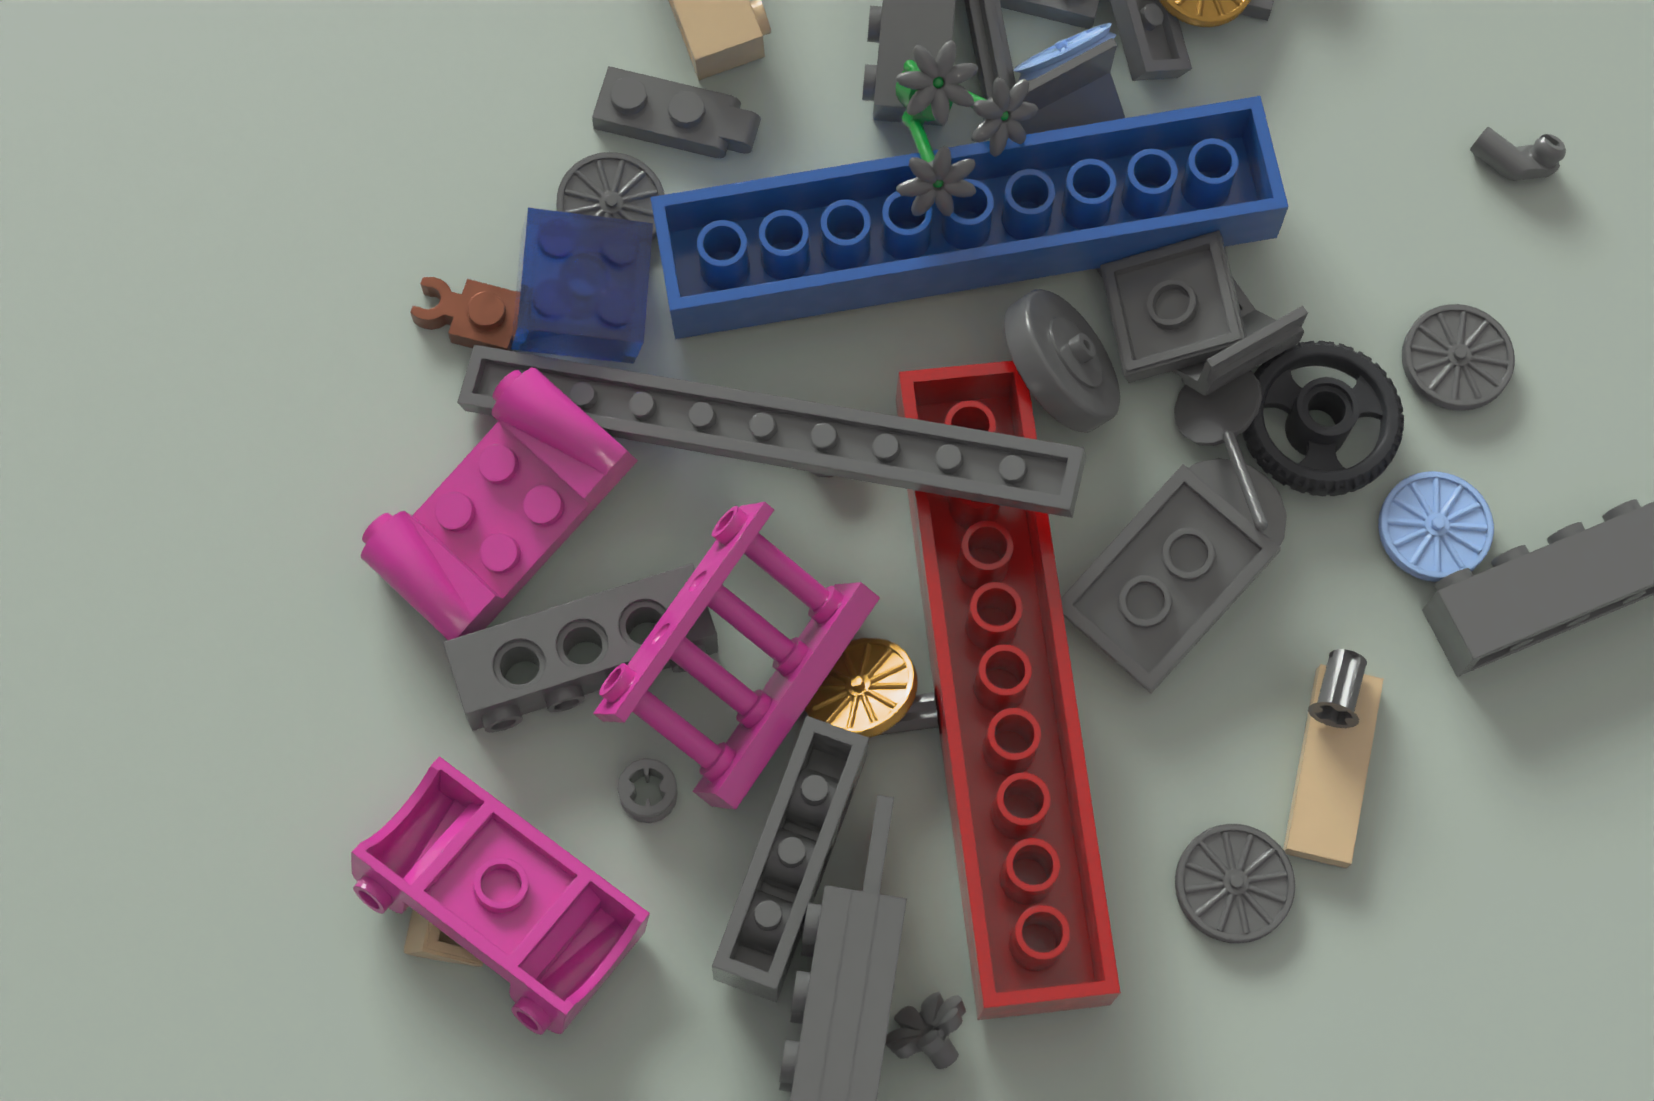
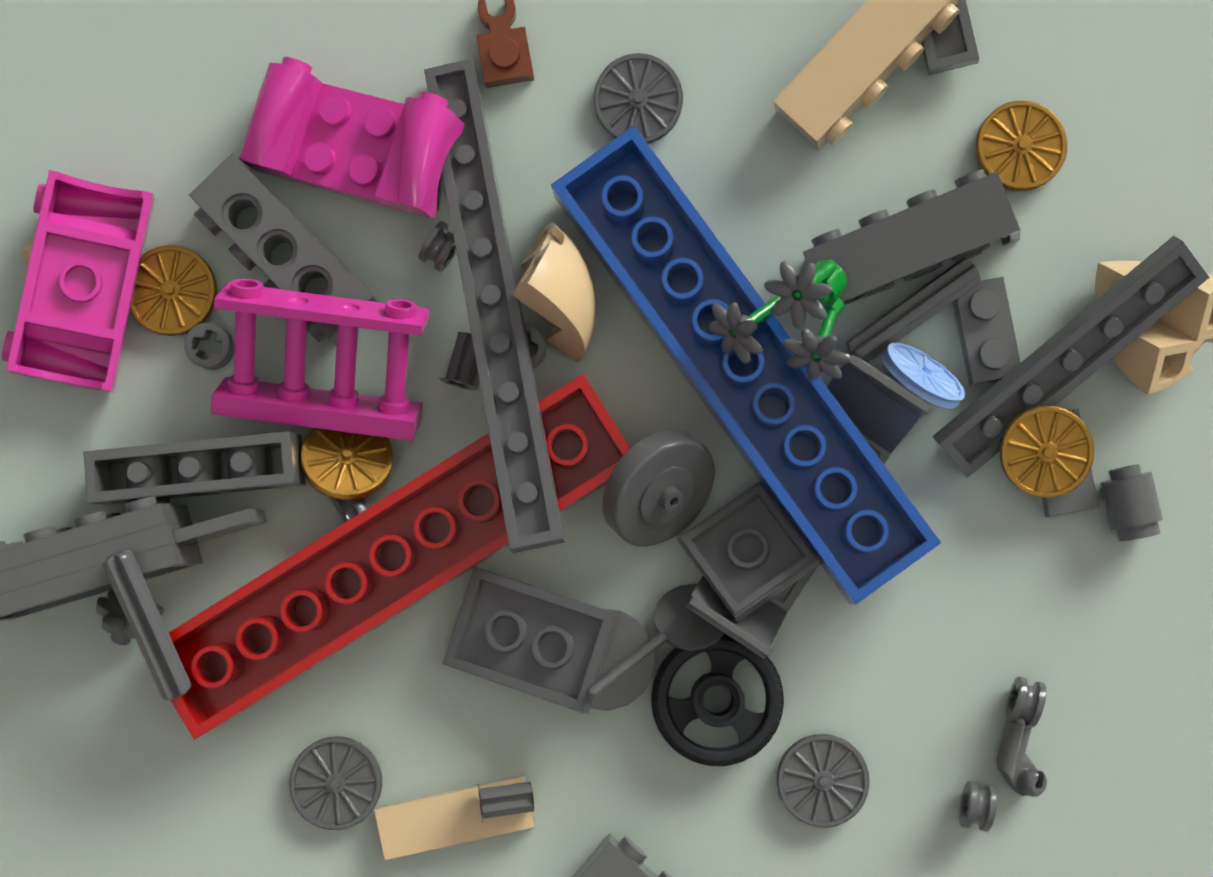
camera: 70 degrees right, 15 degrees up
(563, 797) = (173, 290): none -> pearl gold wheel
(582, 286) = (547, 110): clear blue brick -> none
(668, 477) = (439, 247): none -> dark grey bush
(673, 114) = (734, 107): dark grey hinge -> none
(786, 357) = (560, 290): none -> tan brick
(812, 514) = (462, 363): none -> dark grey piece
(963, 967) = (147, 624): none -> dark grey axle
(1435, 525) = (676, 818): light blue wheel -> none
(1459, 118) = (1026, 701): none -> dark grey bush
(1552, 213) = (978, 806): none -> dark grey bush

